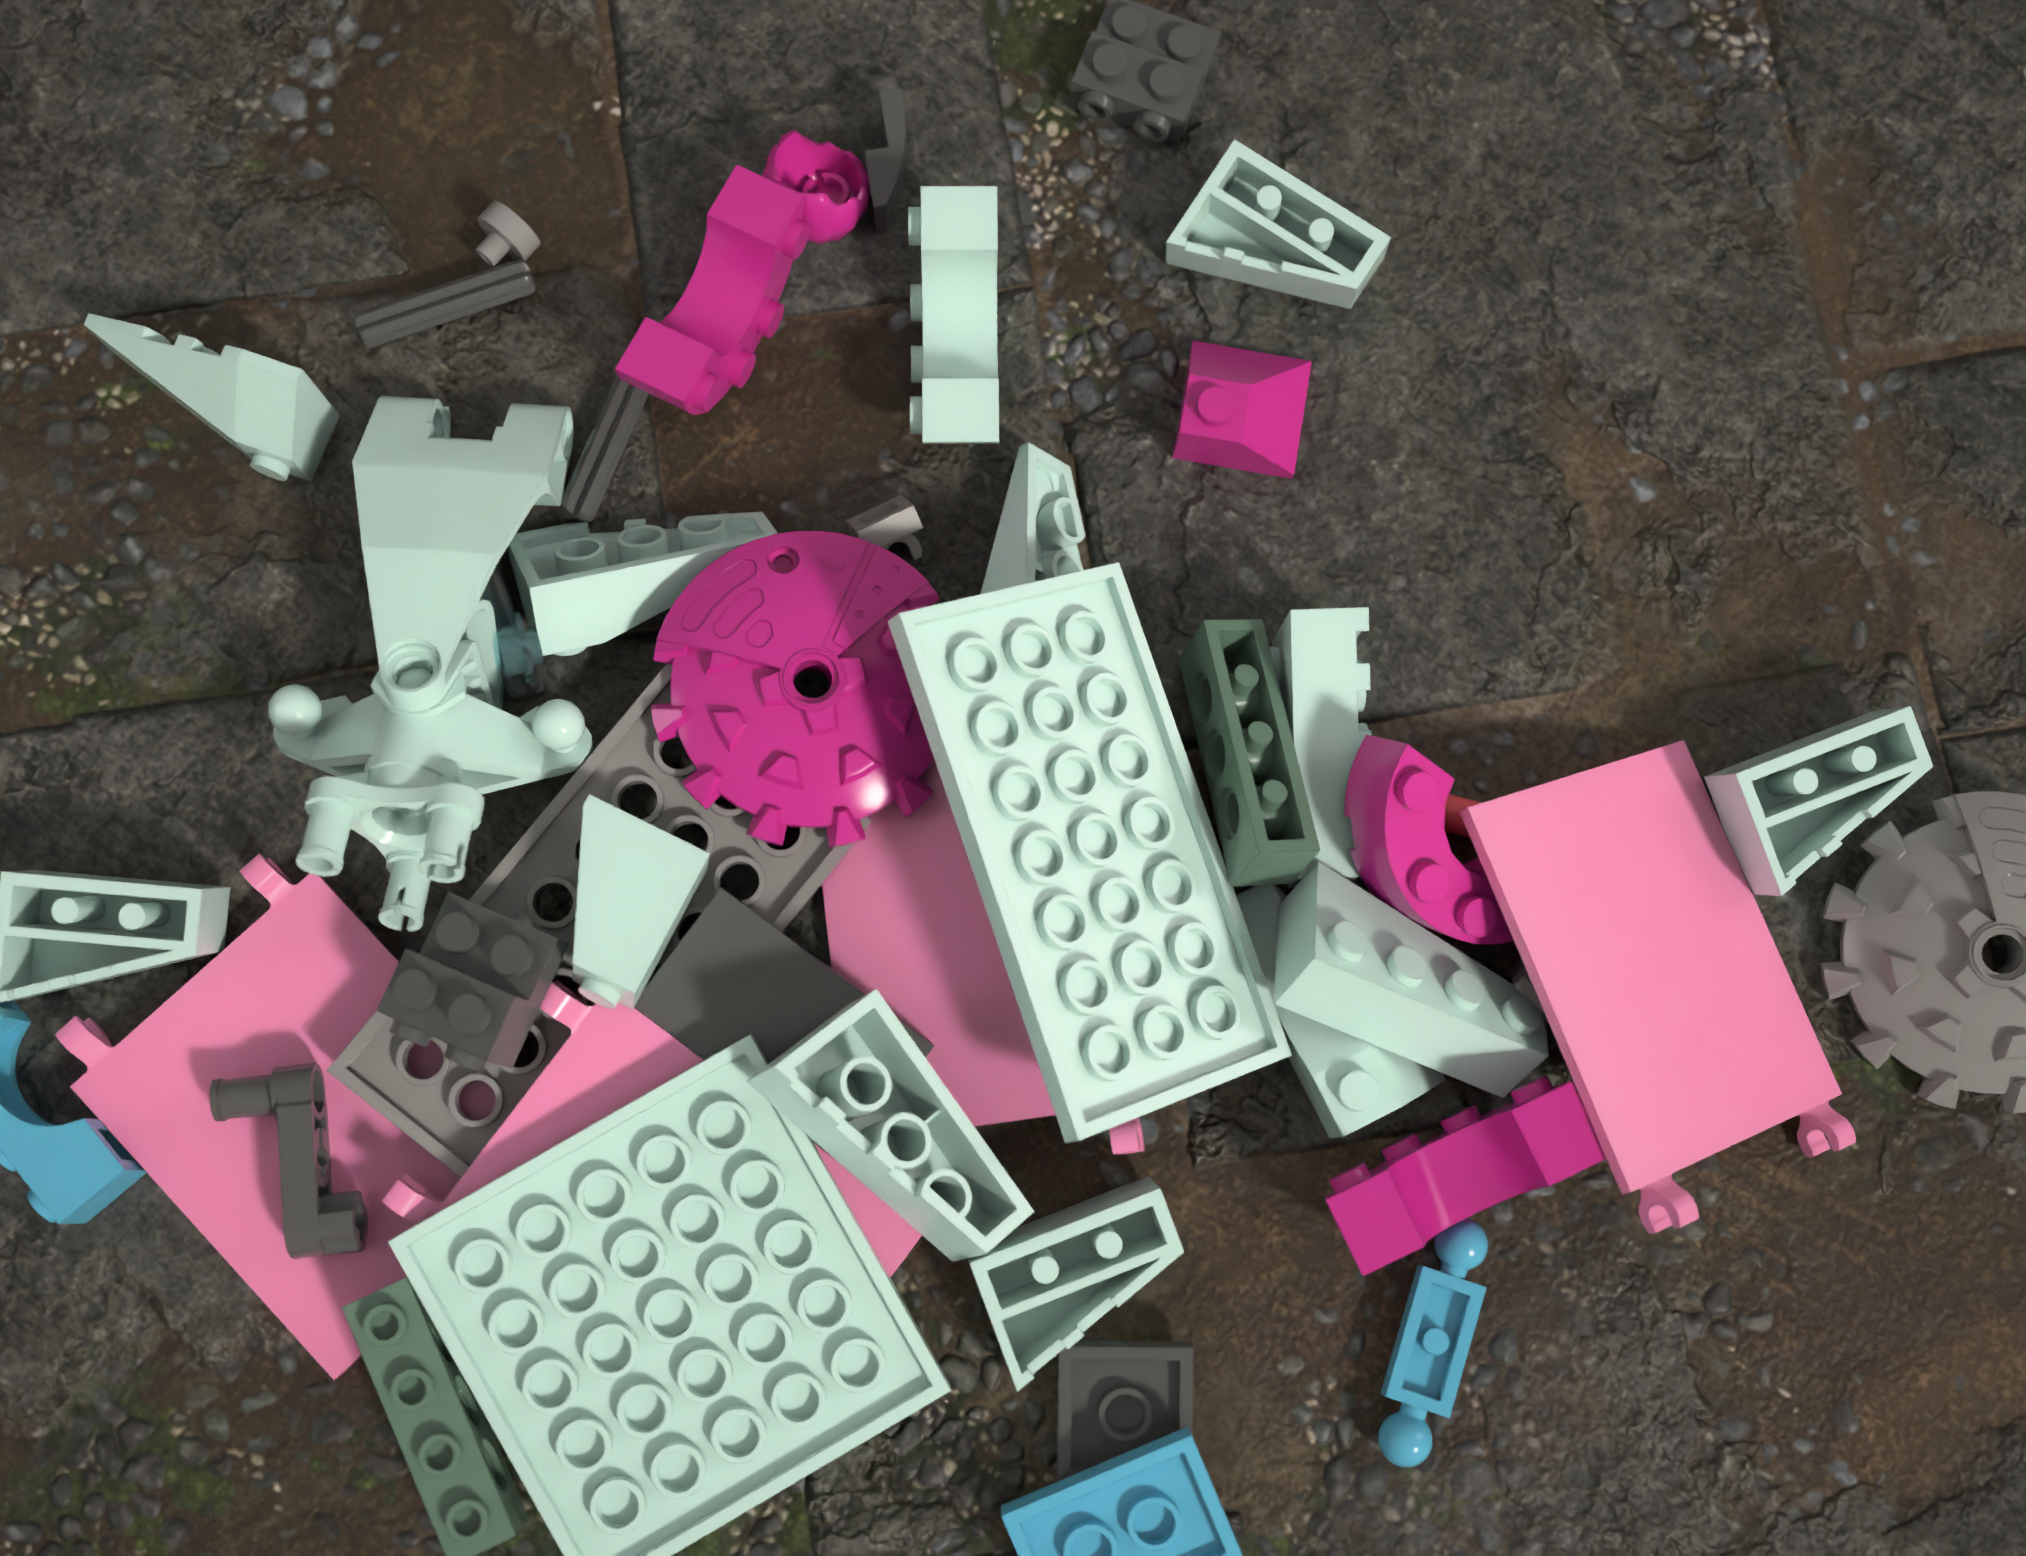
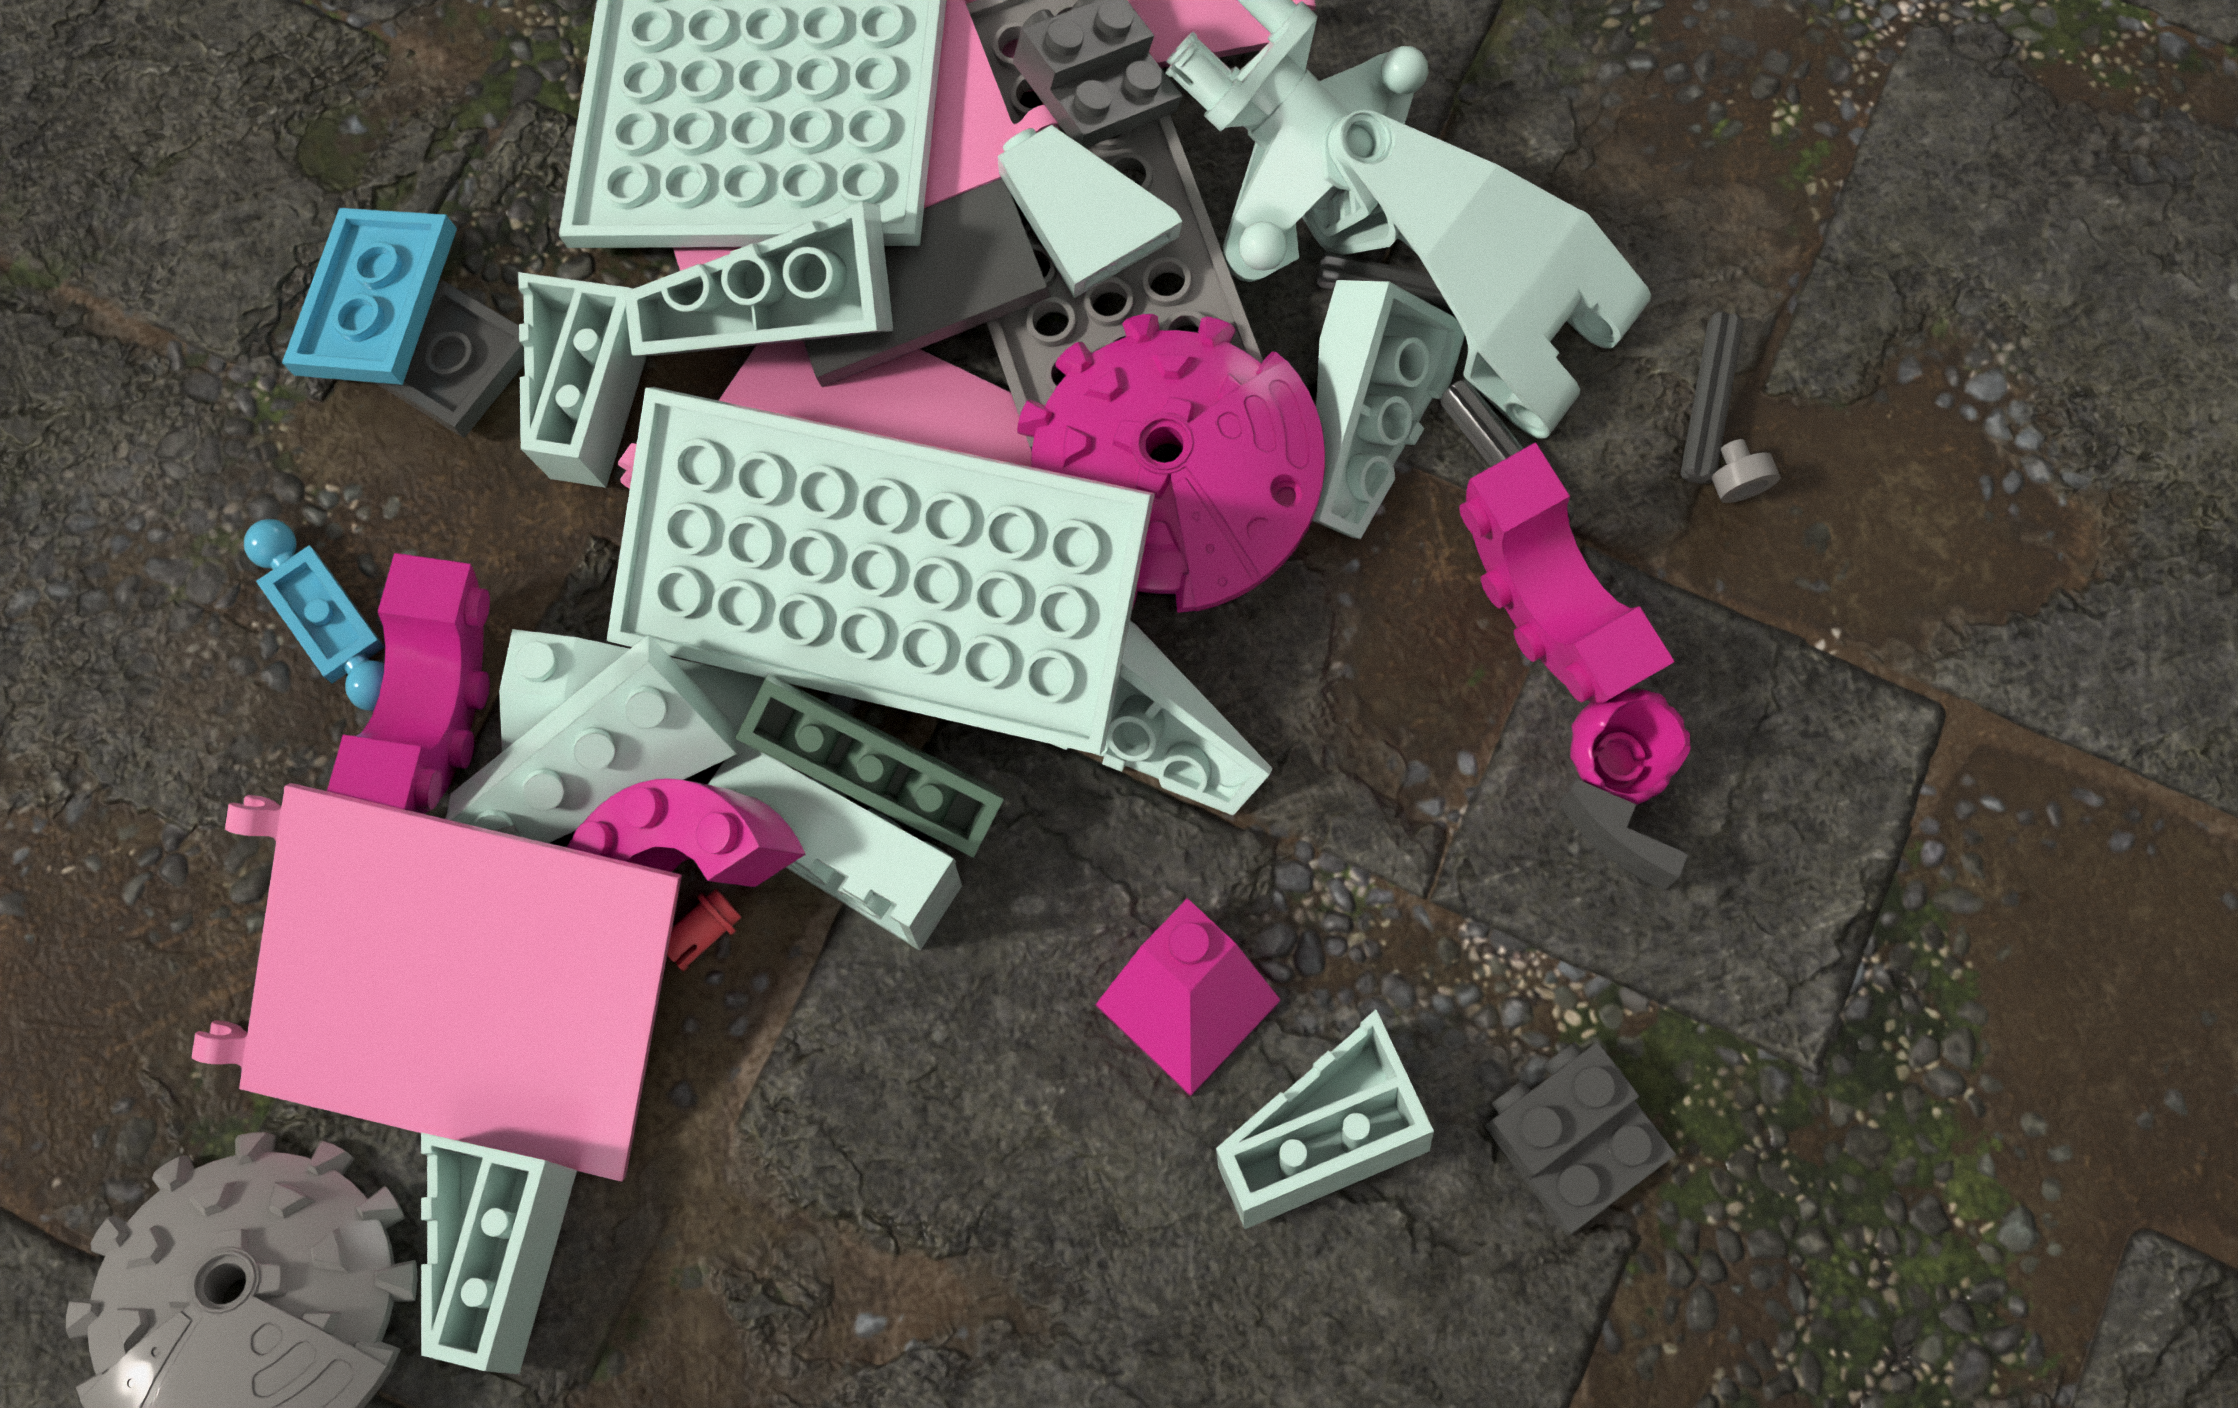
camera: 130 degrees right, 5 degrees down
(246, 398) = (1709, 187): light aqua wedge -> none
(519, 649) = (1352, 261): clear light blue plate -> none
(889, 524) = (1276, 618): light grey tile -> none
(958, 315) = (1400, 780): light aqua brick -> none

